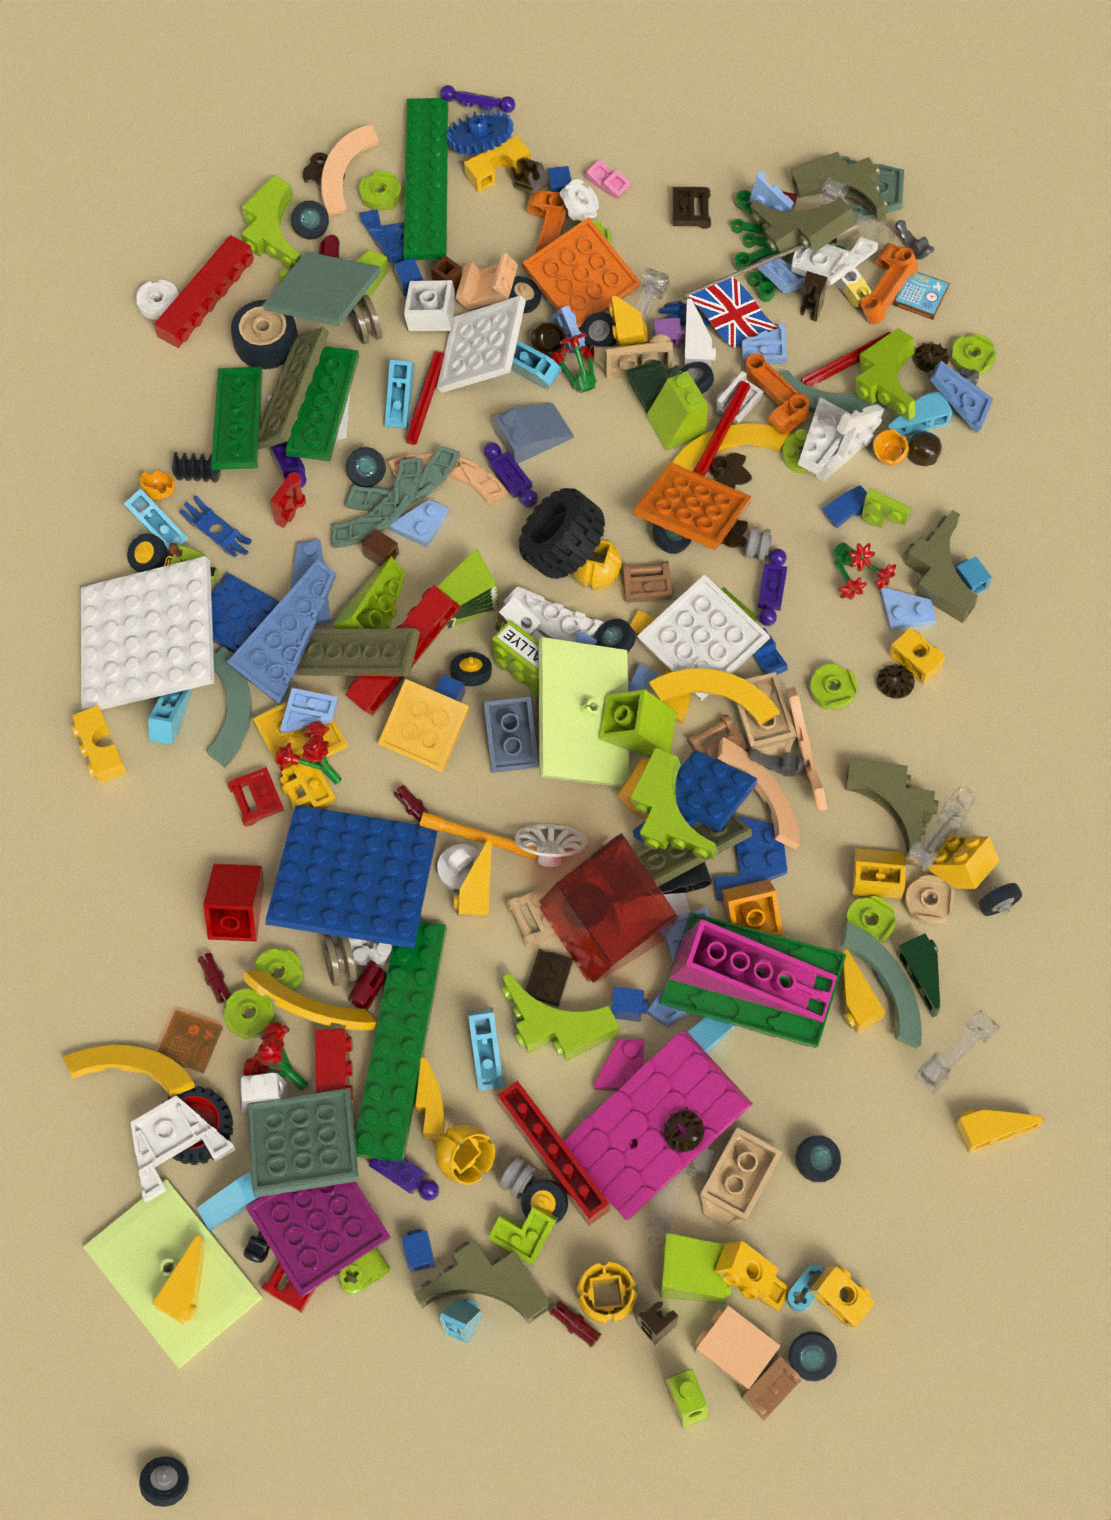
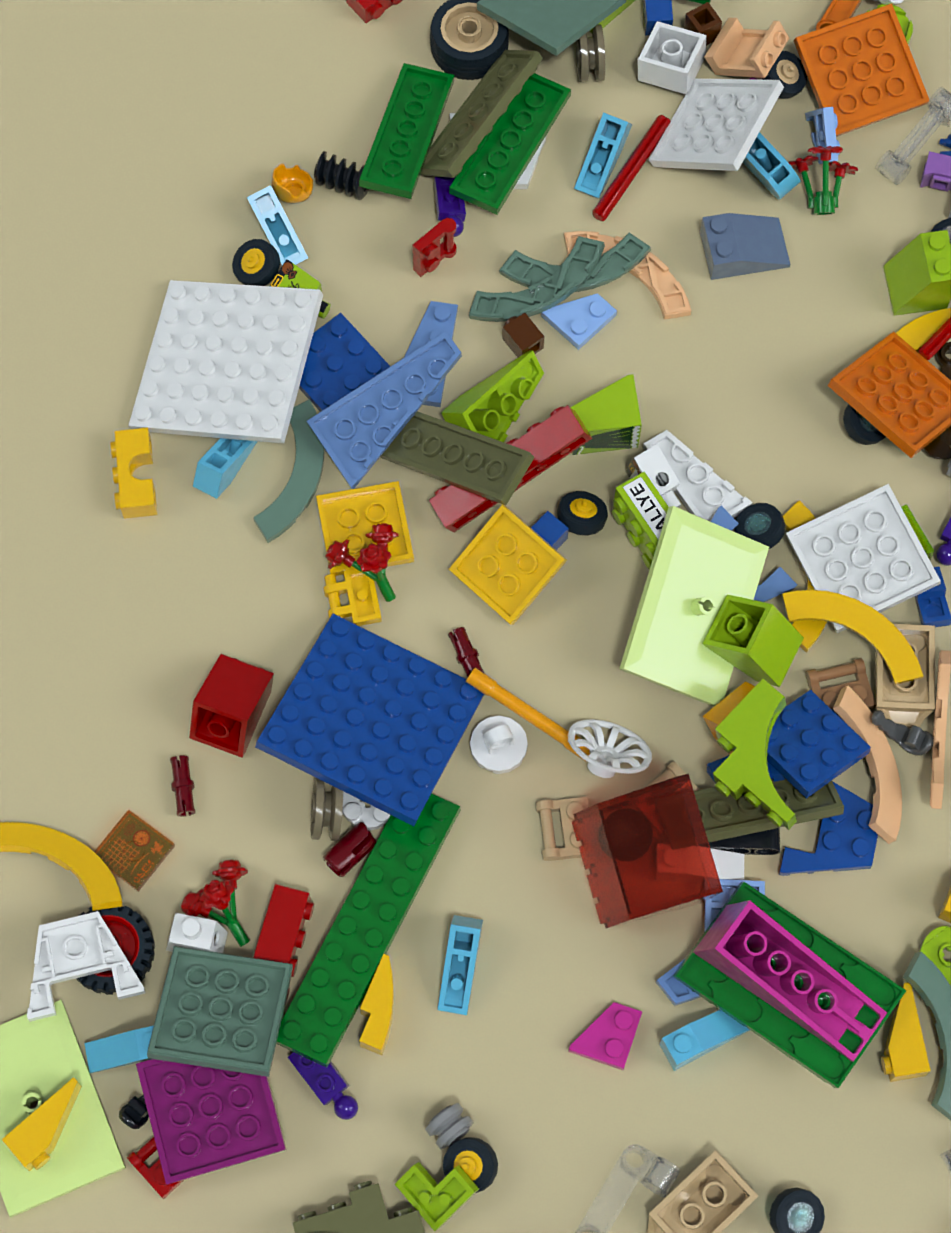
camera: 15 degrees right, 5 degrees up
(207, 520) = (337, 242): blue piece -> none
(248, 1027) = (193, 832): lime plate -> none
(263, 793) = (302, 588): red plate -> none
(285, 960) = (247, 817): lime plate -> none
(305, 1007) = (272, 855): yellow tile -> none
(307, 707) = (381, 504): light blue wing -> none
(365, 467) = (536, 233): black wheel -> none
(365, 1270) = (250, 1177): lime piece -> none
(418, 1250) = (312, 1173): blue brick -> none
(470, 1160) = (397, 1080): yellow piece -> none
(474, 892) = (505, 776): yellow slope -> none
(510, 474) = (701, 291): dark purple plate -> none
(511, 734) = (605, 604): sand blue slope -> none
(547, 338) = (797, 137): dark brown hair -> none
(549, 977) = (557, 904): dark brown plate -> none
(553, 1153) = (498, 1112): red brick -> none
(561, 533) = (737, 384): black tyre -> none
(571, 1030) = (532, 957): lime arch -> none
(597, 574) = (759, 441): yellow piece -> none
(599, 330) = (862, 146): black wheel -> none
(619, 359) = (894, 195): tan slope -> none
(624, 1137) = (624, 1117): dark pink piece -> none
(628, 1004) = (638, 965): blue brick -> none
(629, 322) = (898, 155): yellow slope -> none
(649, 380) = (901, 225): clear green torso -> none
(649, 587) = (818, 476): medium nougat plate -> none
(695, 1131) = (664, 1142): dark brown gear -> none
(754, 907) = (818, 898): light orange slope -> none

